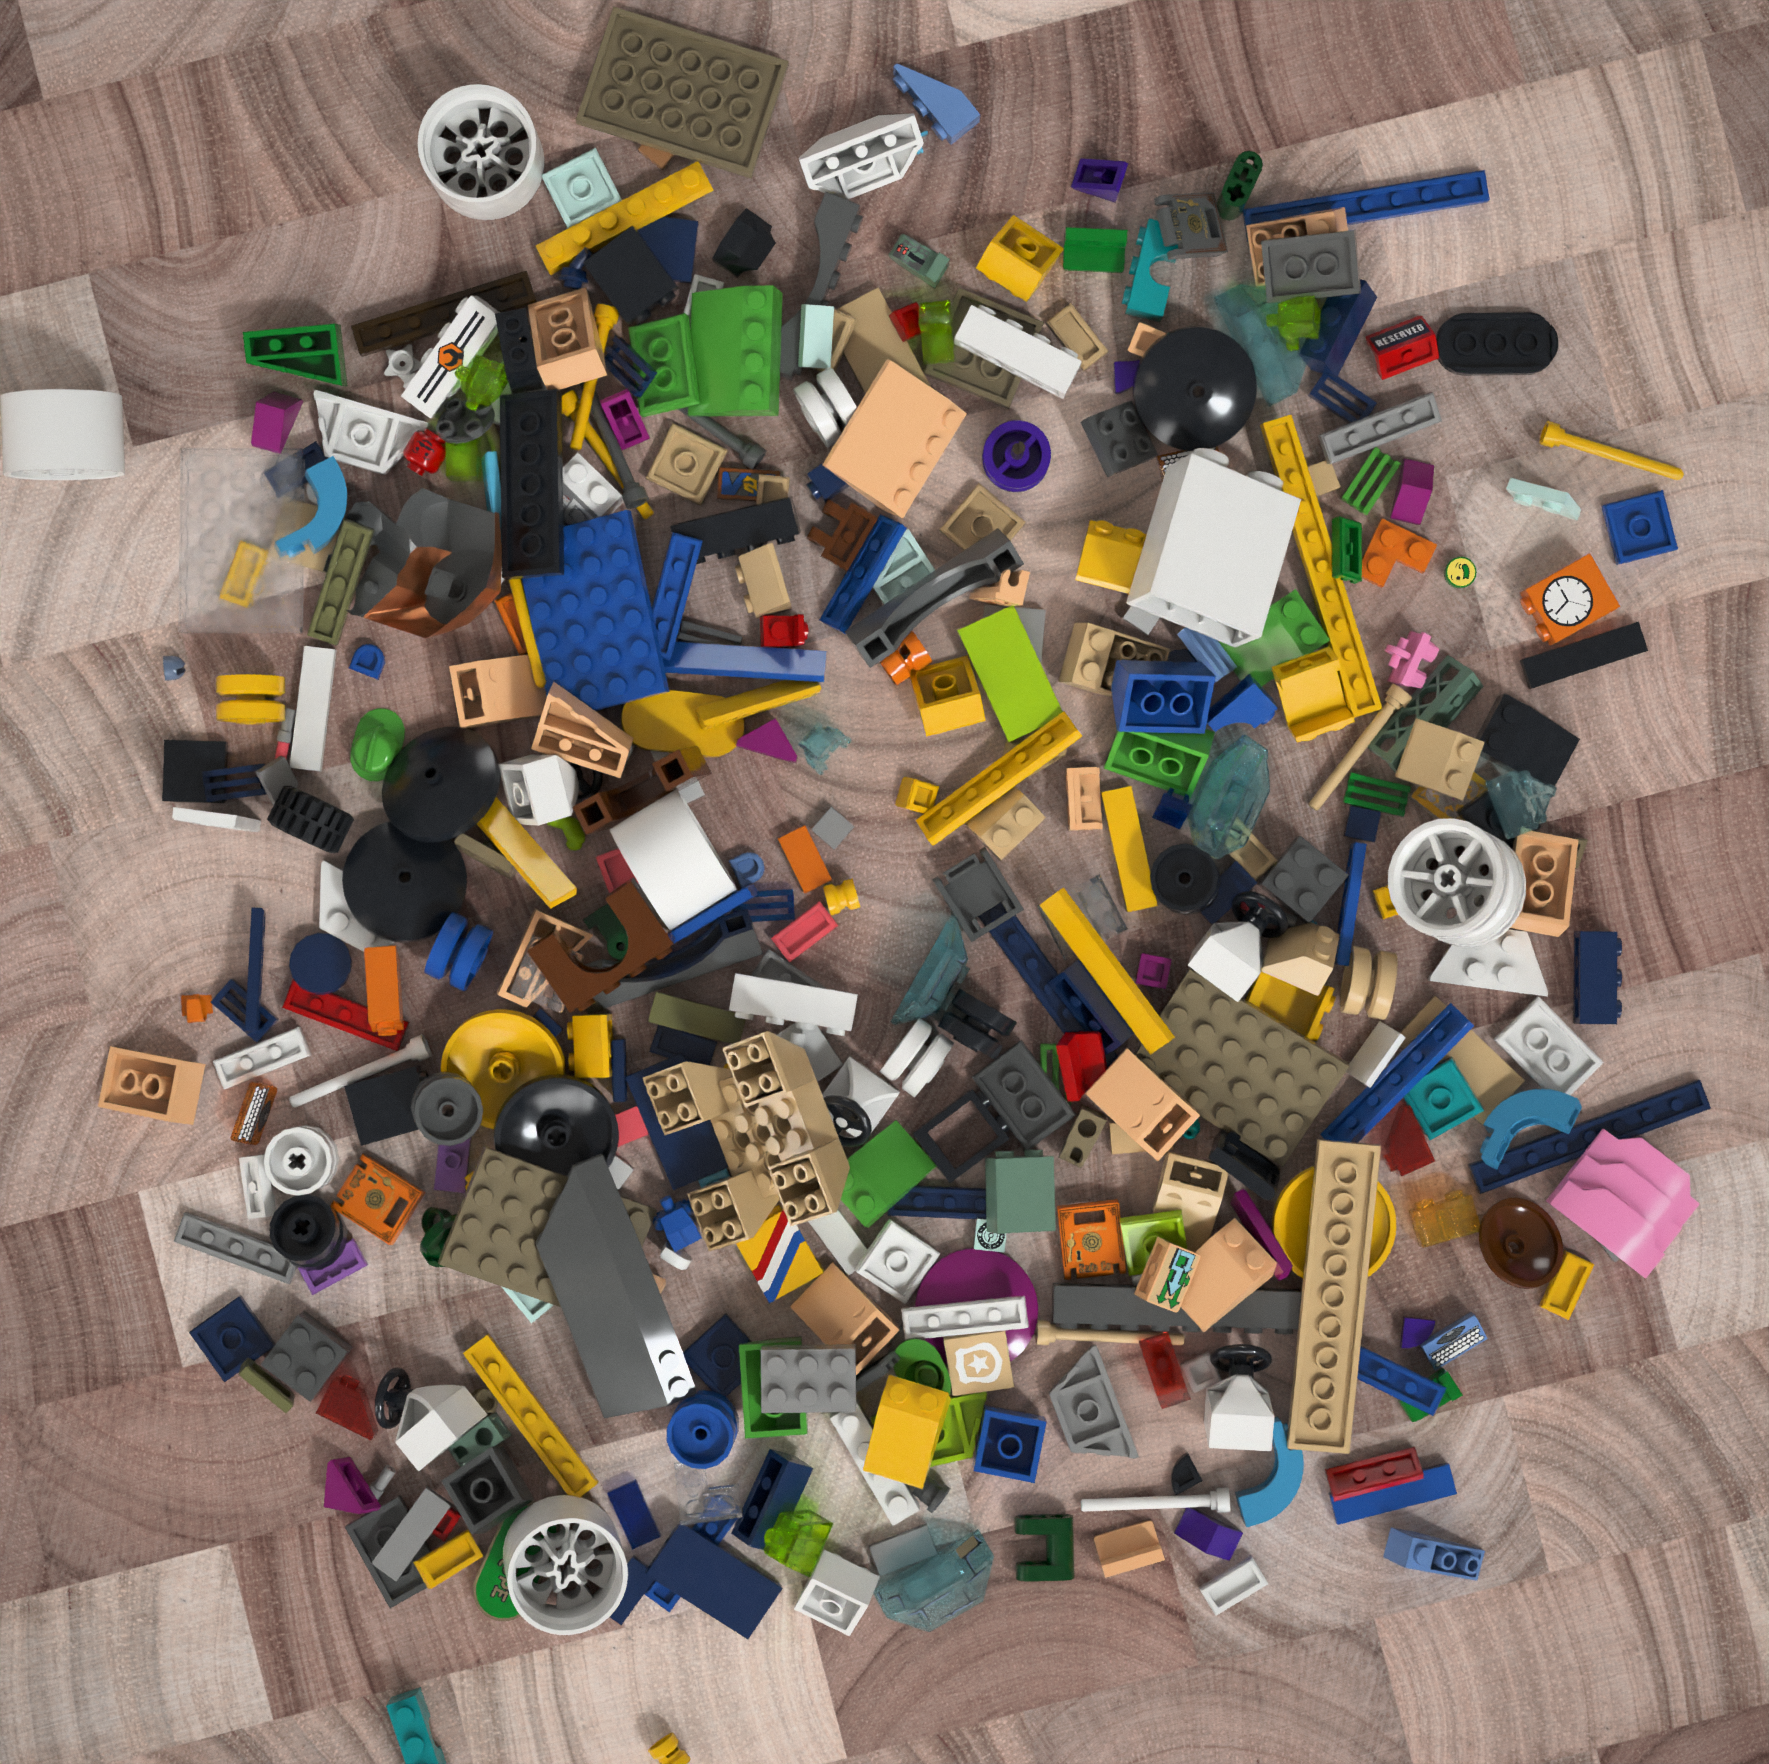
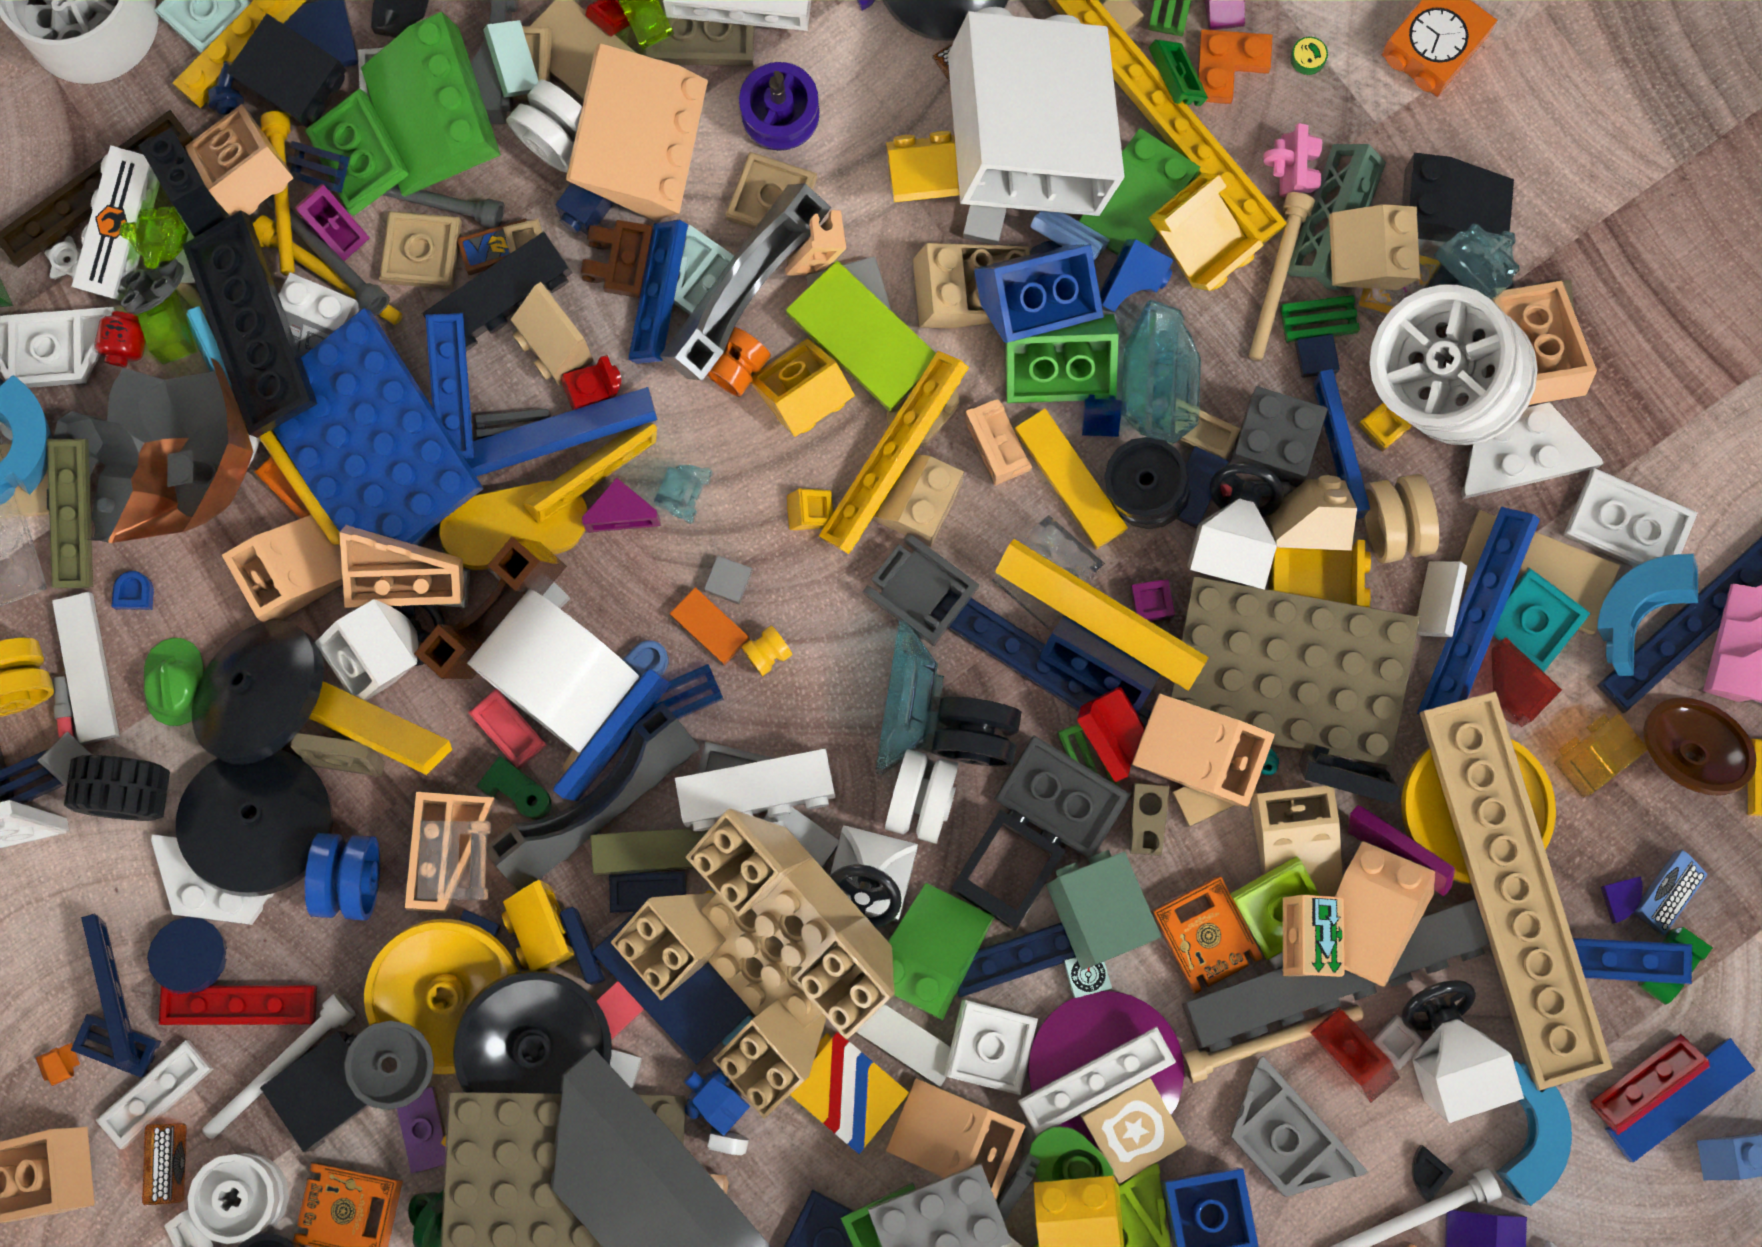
camera: 15 degrees left, 10 degrees down
(384, 990) = (268, 953): orange brick -> none
(572, 831) = (428, 690): lime arm -> none
(578, 982) = (492, 853): reddish brown arch -> none
(804, 931) = (739, 707): coral tile -> none
(1119, 438) = (884, 48): dark grey plate -> none
(1584, 655) = (1479, 91): black tile -> none
(1596, 977) = (1648, 422): dark blue brick -> none

